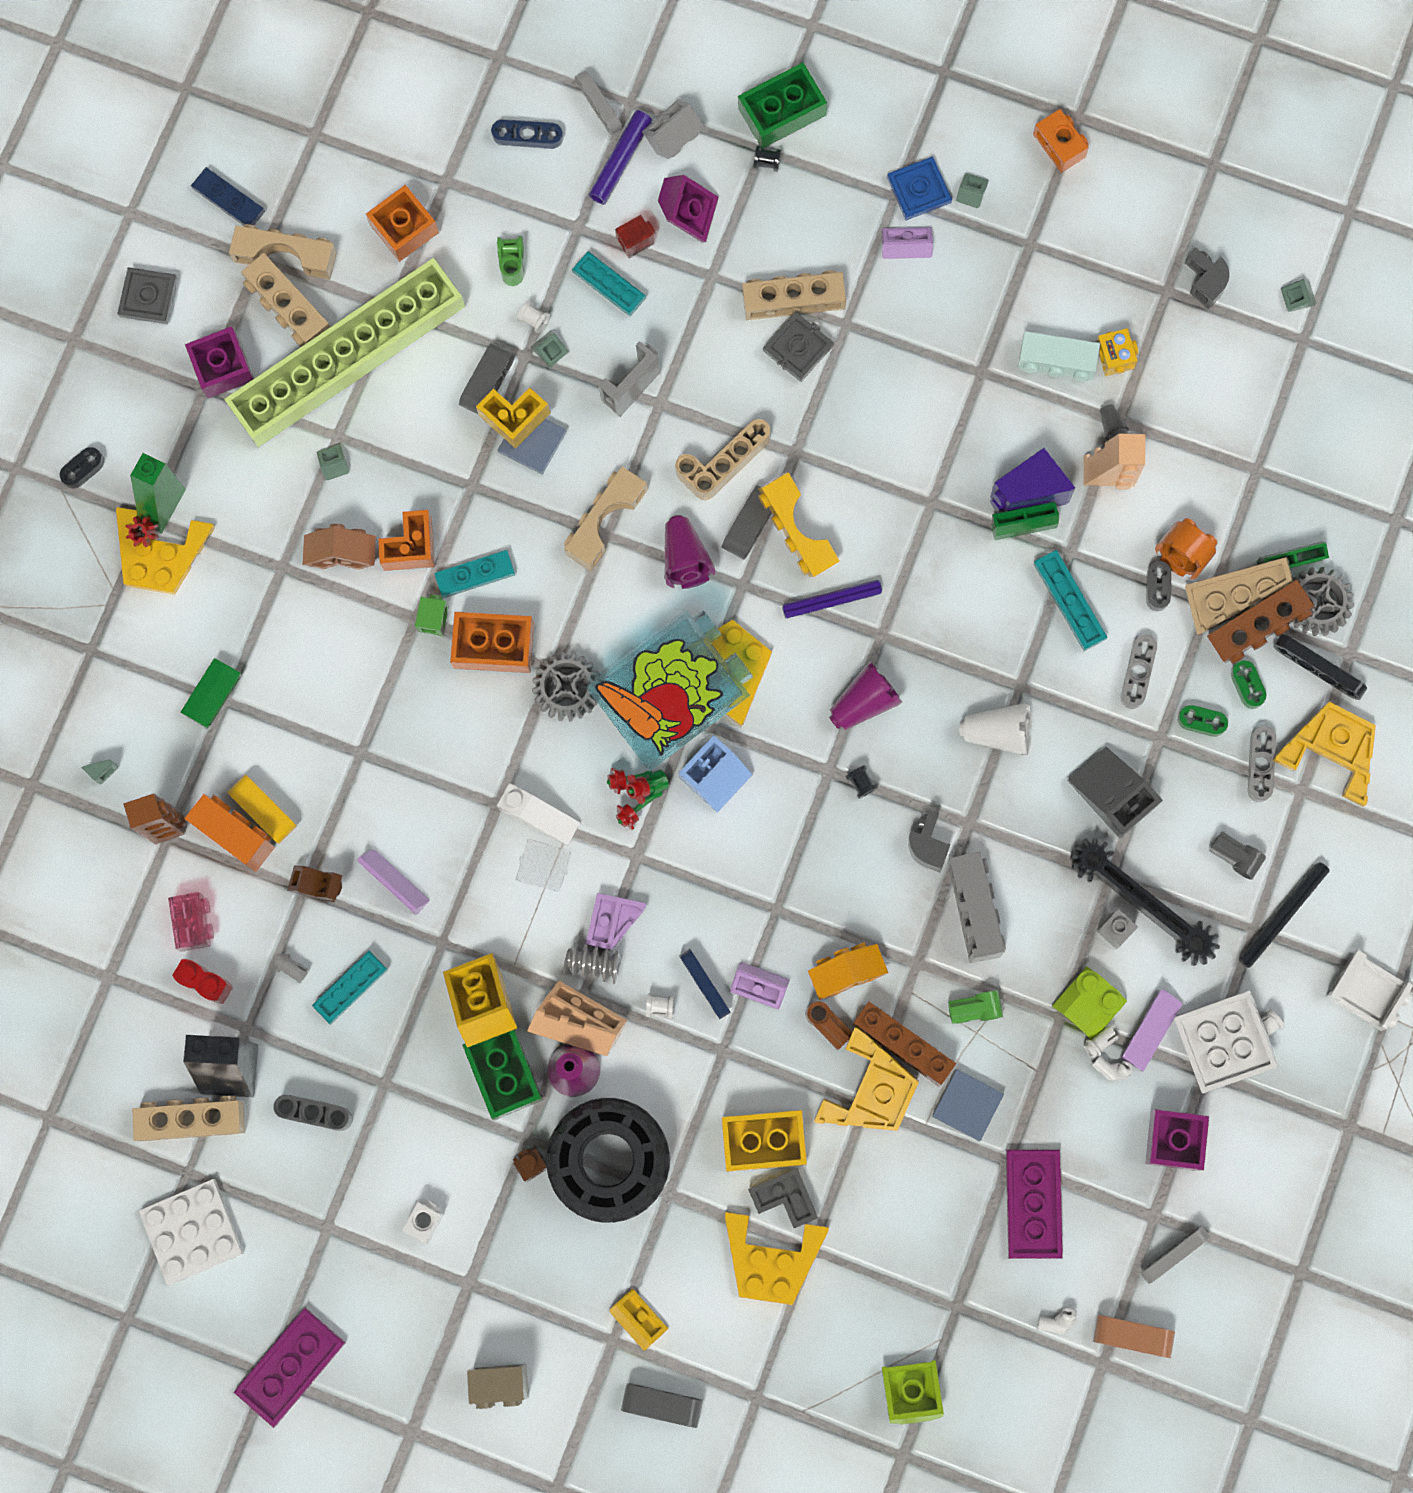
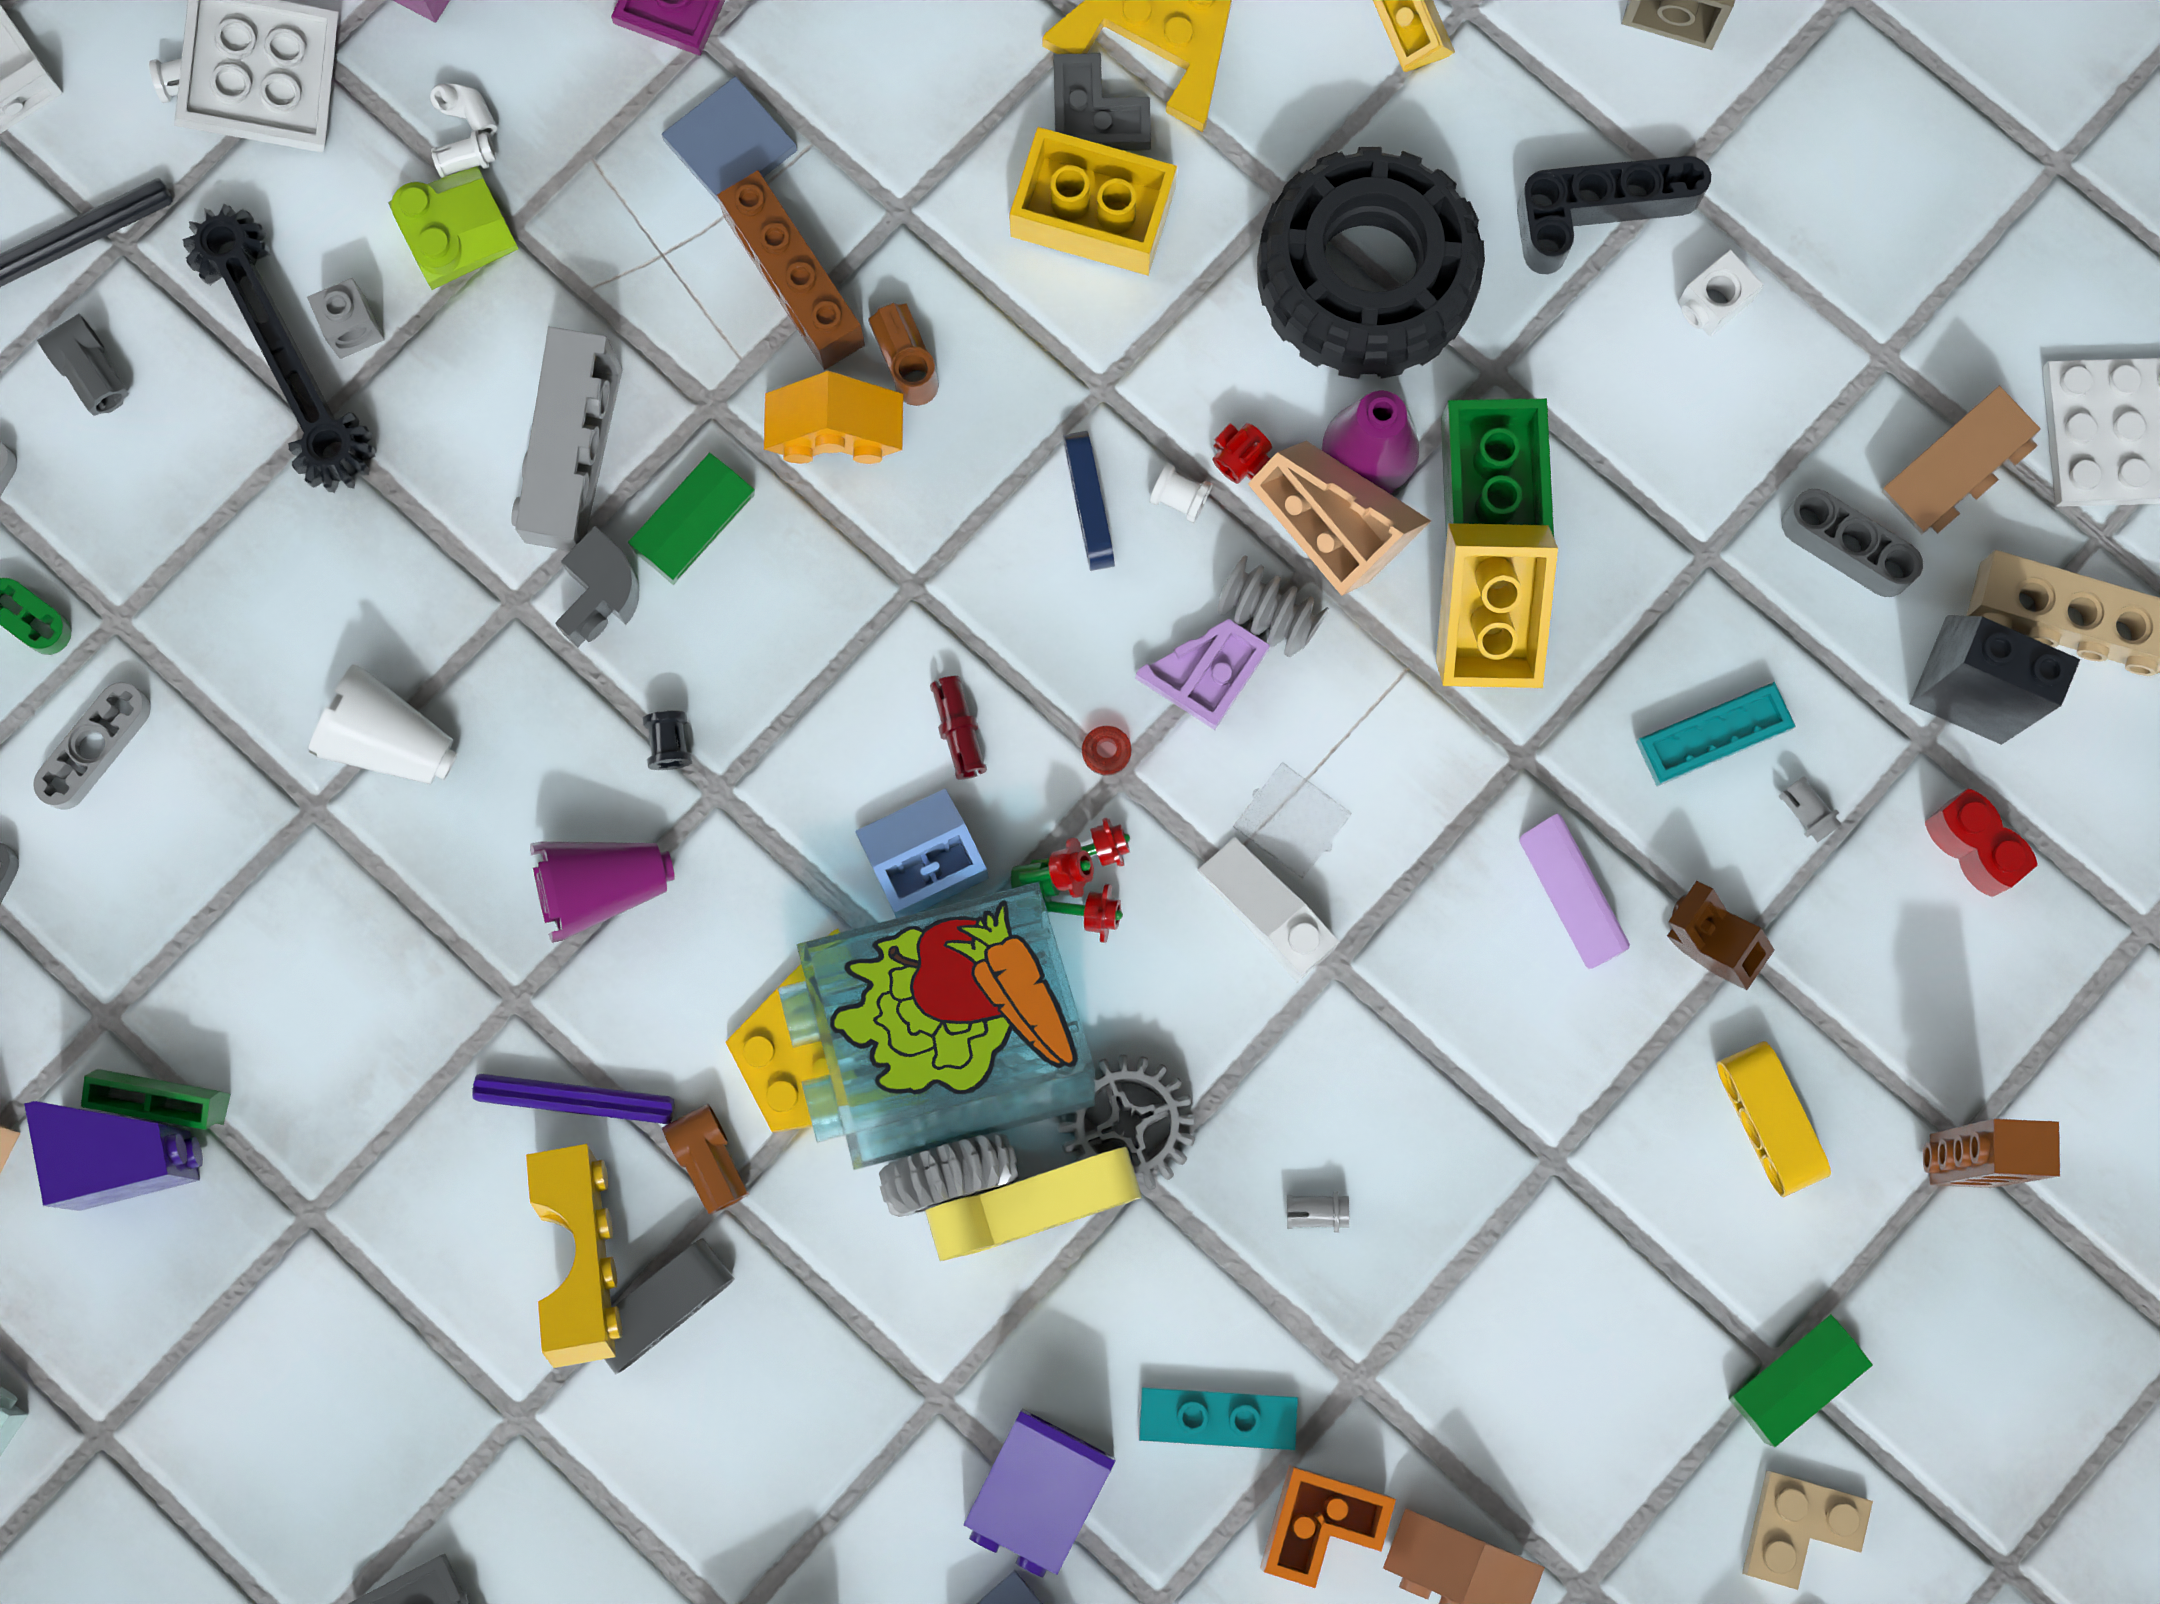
camera: 165 degrees left, 0 degrees up
(101, 770) = (2060, 1309): sand green slope -> none
(190, 921) = (1970, 960): clear pink brick -> none
(195, 635) = (1793, 1513): none -> tan plate
(230, 831) = (1851, 1090): orange brick -> none
(269, 1176) = (1963, 462): none -> medium nougat wedge
(289, 1367) = (2019, 157): magenta tile -> none
(432, 615) = (1328, 1365): bright green brick -> none
(462, 682) = (1318, 1211): none -> light grey pin
(492, 642) = (1235, 1261): orange brick -> none
(495, 1252) = (1681, 178): none -> black beam
(530, 1163) = (1503, 317): reddish brown brick -> none
(542, 509) = (1038, 1494): none -> slope
(595, 629) = (1033, 1204): none -> light yellow beam
(623, 492) = (872, 1464): tan arch -> none
(636, 1037) = (1241, 452): none -> red gear
(638, 626) = (948, 1173): none -> light grey gear
(646, 870) = (1102, 765): none -> clear red plate
(685, 555) = (806, 1291): magenta cone -> none
(723, 844) = (958, 727): none -> dark red pin
(725, 456) = (647, 1454): tan beam -> none
(759, 985) = (993, 467): lavender slope -> none
(762, 599) = (701, 1148): none -> dark orange piece
(882, 1092) = (864, 205): yellow wing -> none
(898, 897) = (691, 518): none -> green piece
(983, 1006) = (631, 282): bright green piece -> none
(1070, 600) = (147, 921): teal plate -> none
(1115, 791) = (235, 545): dark grey slope -> none
(1151, 1030) = (373, 146): lavender slope -> none

